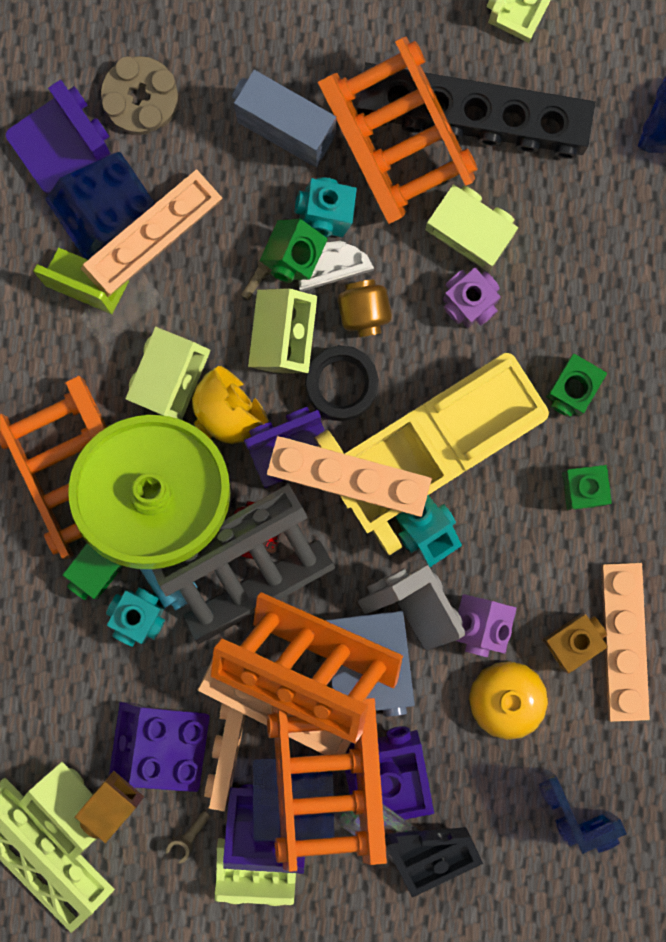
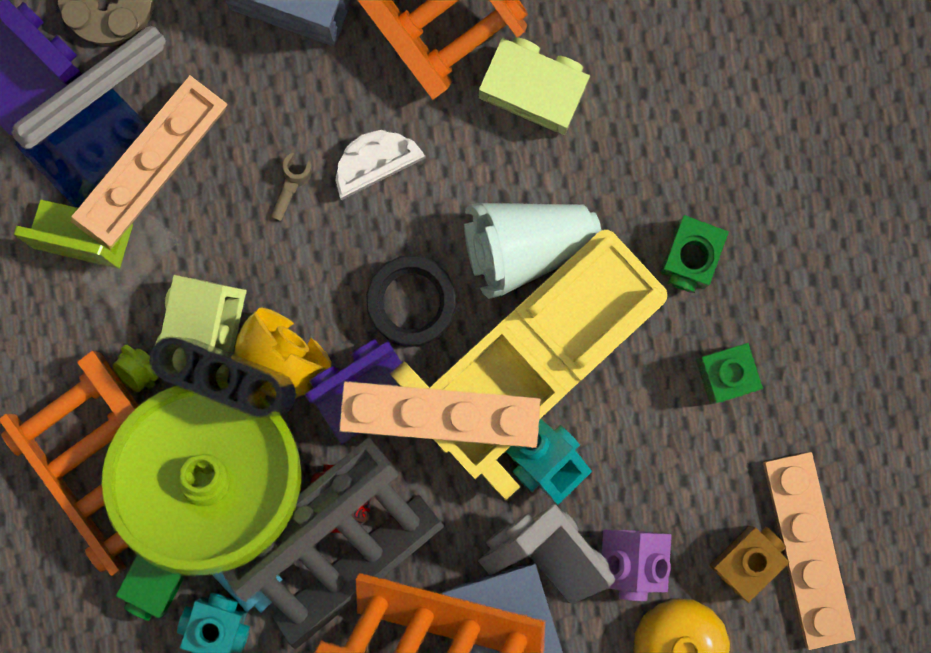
camera: 10 degrees left, 0 degrees up
(110, 397) = (134, 369): none -> lime plate
(114, 164) = (88, 87): none -> light grey axle
(163, 410) = (201, 371): none -> black beam
(282, 331) = (329, 251): yellowish green brick -> none
(296, 238) = (340, 149): green brick -> none
(326, 206) = (353, 93): teal brick -> none
(364, 307) = (422, 205): pearl gold head -> none
(441, 351) = (524, 241): none -> light aqua cone
(468, 311) = (545, 187): medium lavender brick -> none

